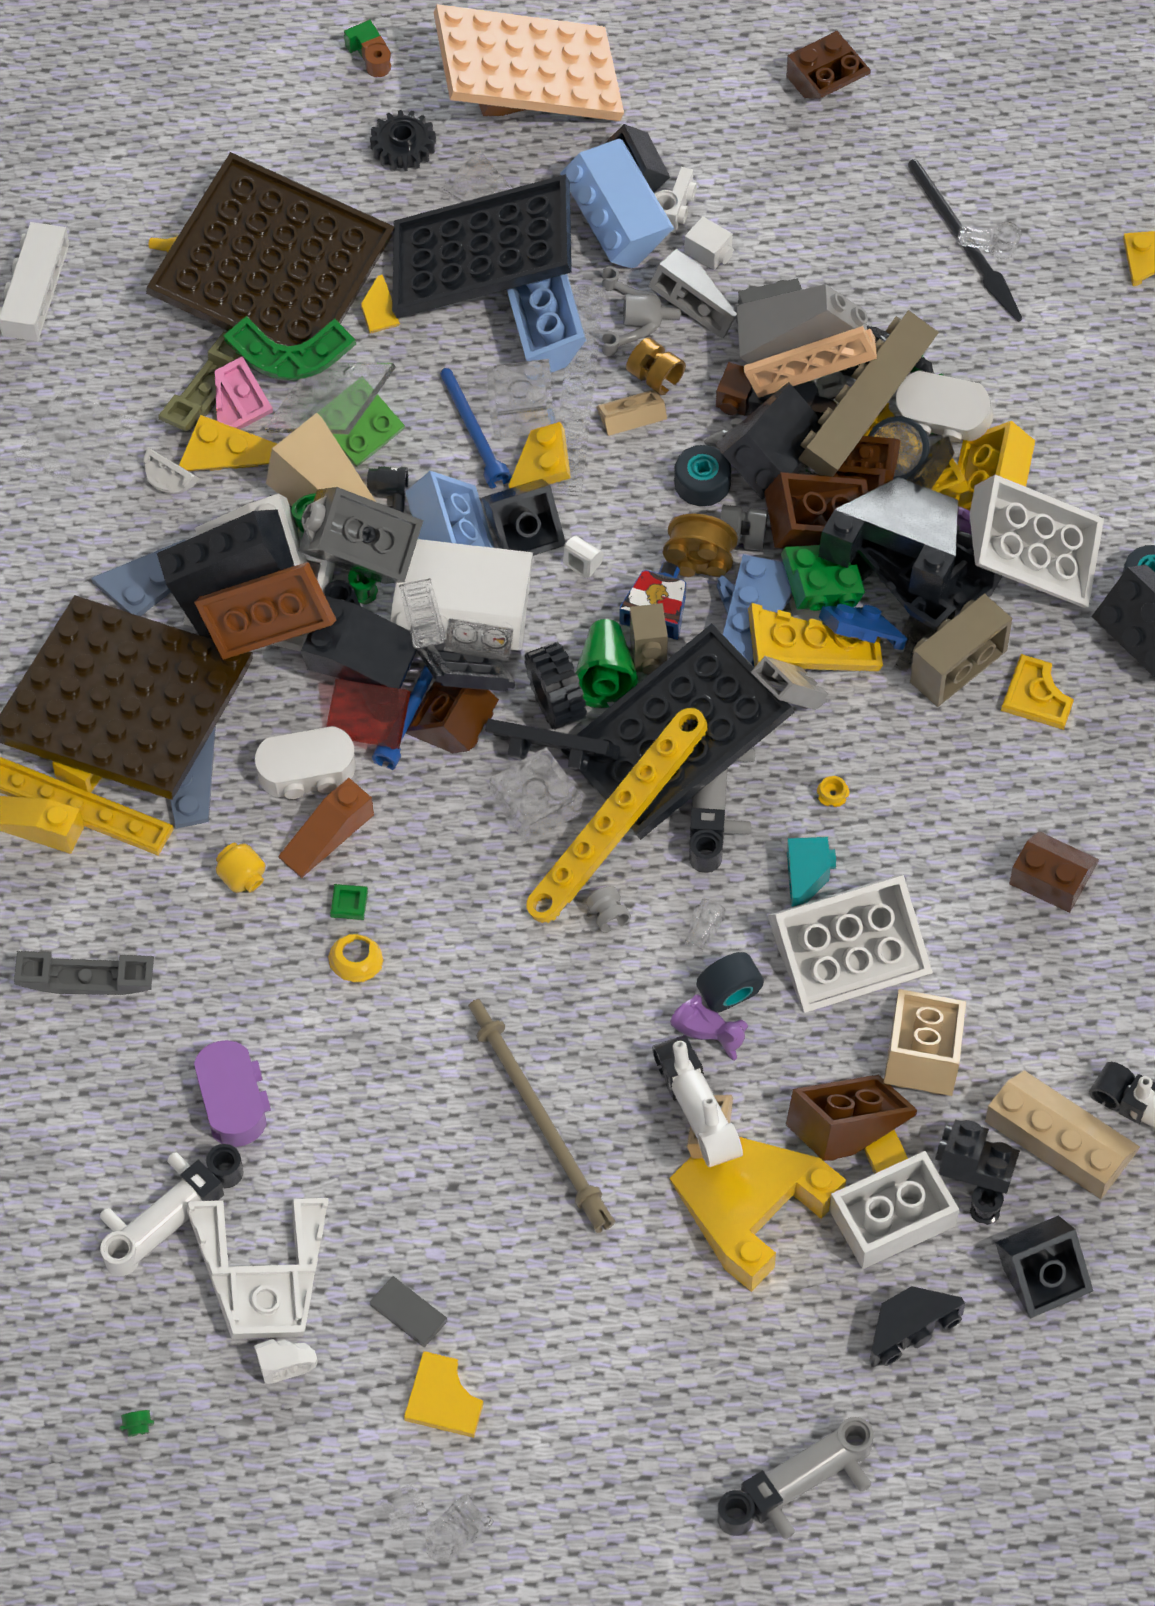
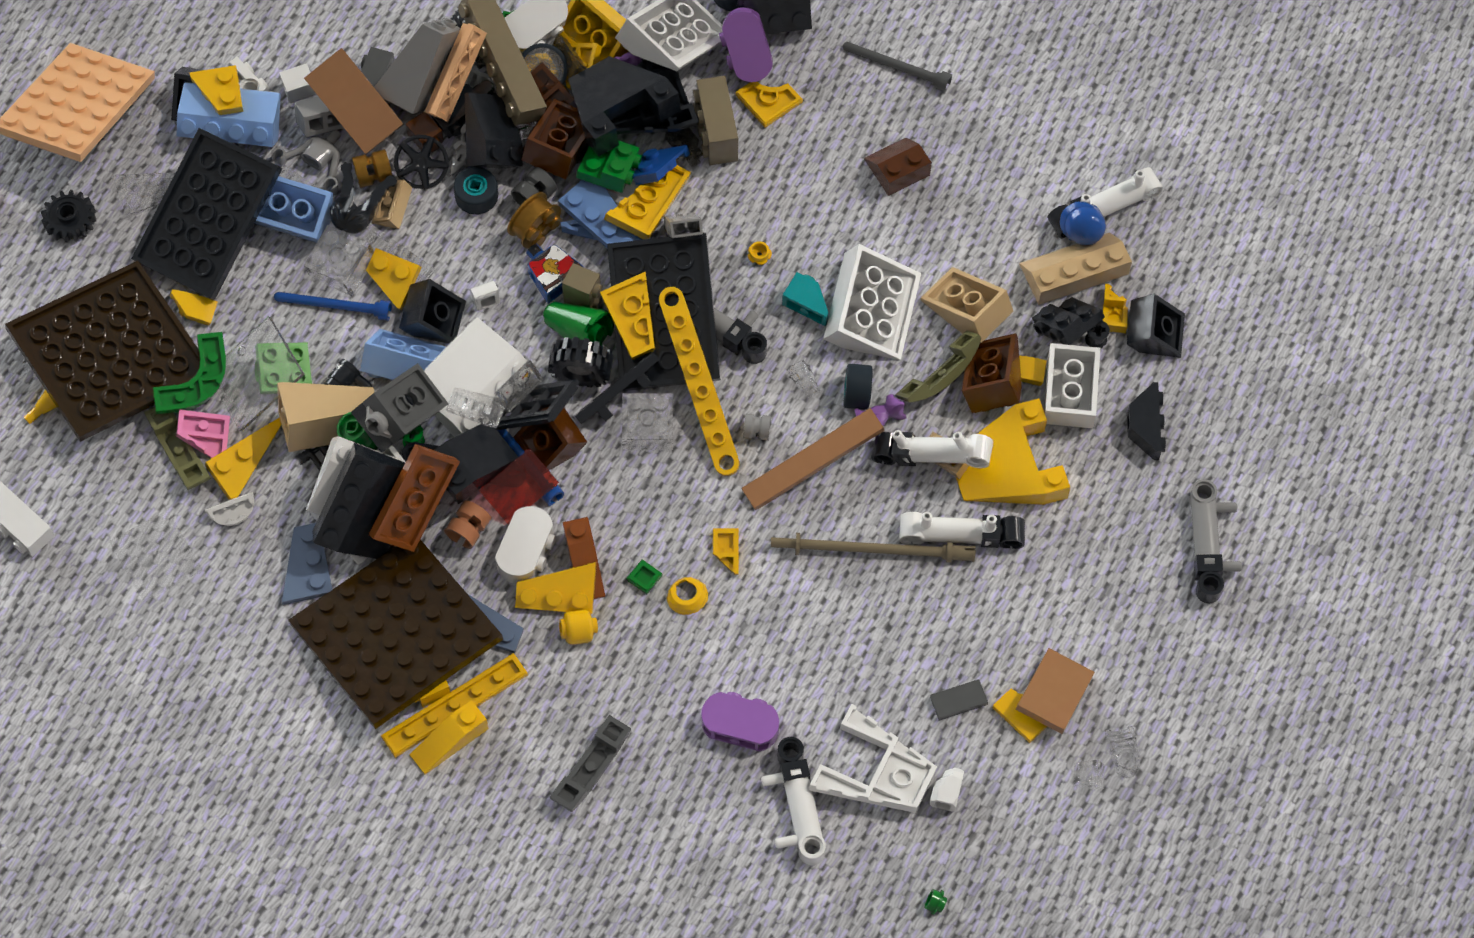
camera: 60 degrees left, 5 degrees up
(272, 827) = (559, 591): none -> yellow wing
(280, 693) = (469, 521): none -> nougat wheel
(439, 964) = (727, 547): none -> yellow slope
(482, 1408) = (1055, 690): none -> medium nougat tile
(580, 370) = (346, 214): none -> black hair
(605, 986) = (813, 459): none -> medium nougat tile
(634, 171) = (220, 88): none -> yellow wing
(638, 1217) = (988, 531): none -> white piece
(645, 697) = (631, 314): none -> yellow wing
(697, 404) = (421, 161): none -> black wheel
(711, 295) = (353, 101): none -> medium nougat tile
(770, 1049) = (964, 350): none -> olive slope
(1035, 1207) = (1114, 310): none -> yellow slope
(1078, 623) = (746, 45): none -> medium lavender brick
(1117, 1103) = (1083, 223): none -> blue helmet

